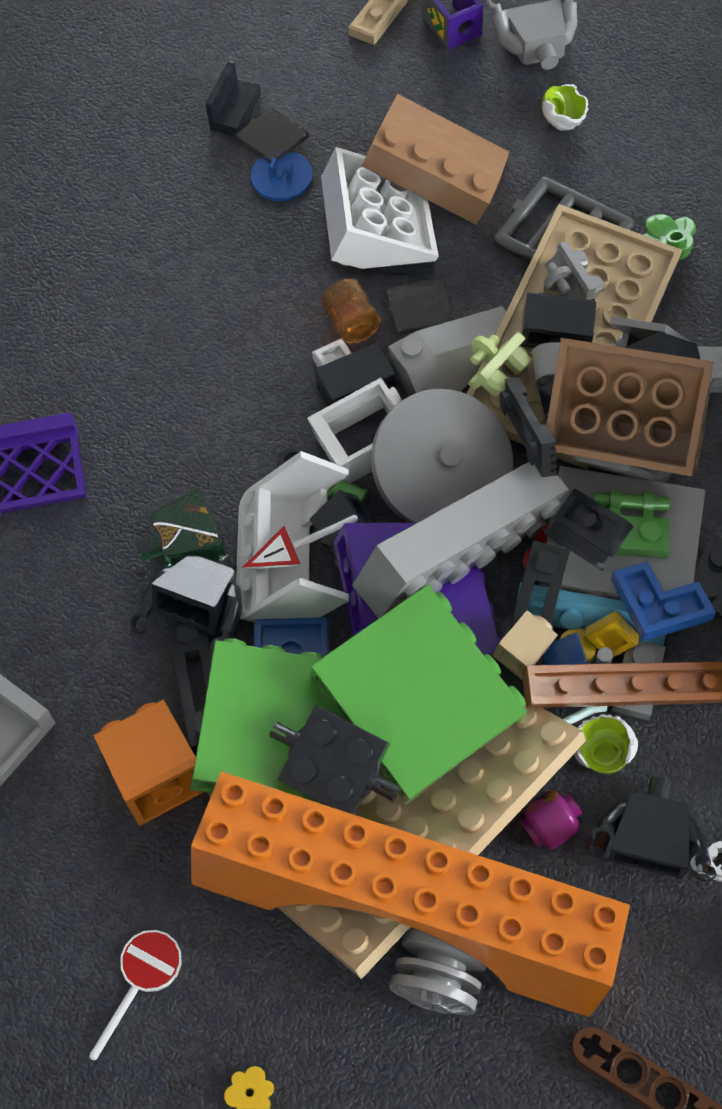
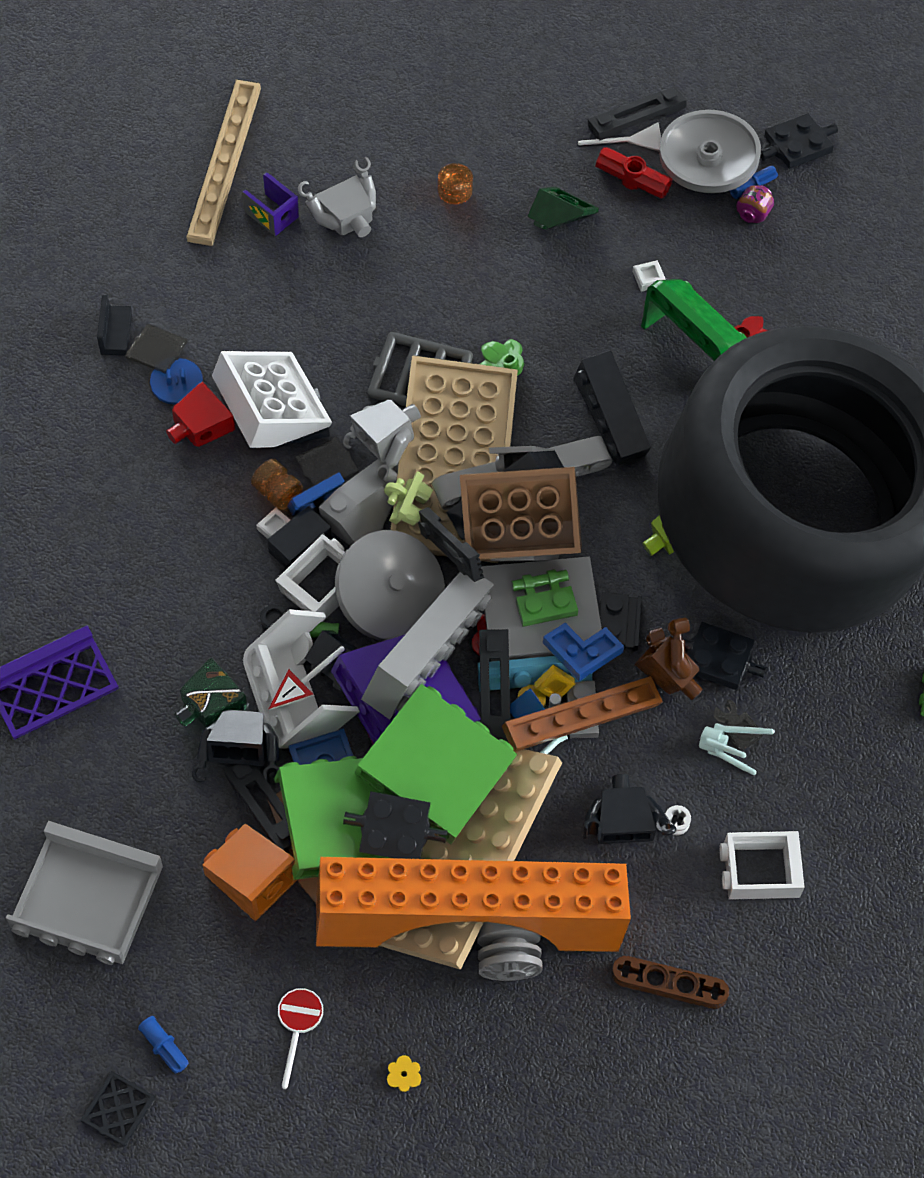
camera: 25 degrees left, 0 degrees up
(291, 218) = (200, 417): none -> red torso
(390, 331) = (316, 493): none -> blue plate
(436, 159) = (303, 339): medium nougat slope -> none
(495, 280) = (385, 432): none -> light grey torso
(525, 643) = (497, 706): tan brick -> none
(551, 819) = (552, 826): magenta head -> none
(556, 317) = (442, 454): black brick -> none
(564, 107) = (388, 268): lime hair -> none
(569, 274) = (441, 416): light grey hips -> none
(588, 529) = (516, 610): black plate -> none
(608, 744) = (577, 762): lime hair -> none
(673, 34) = (455, 183): none -> clear orange wheel

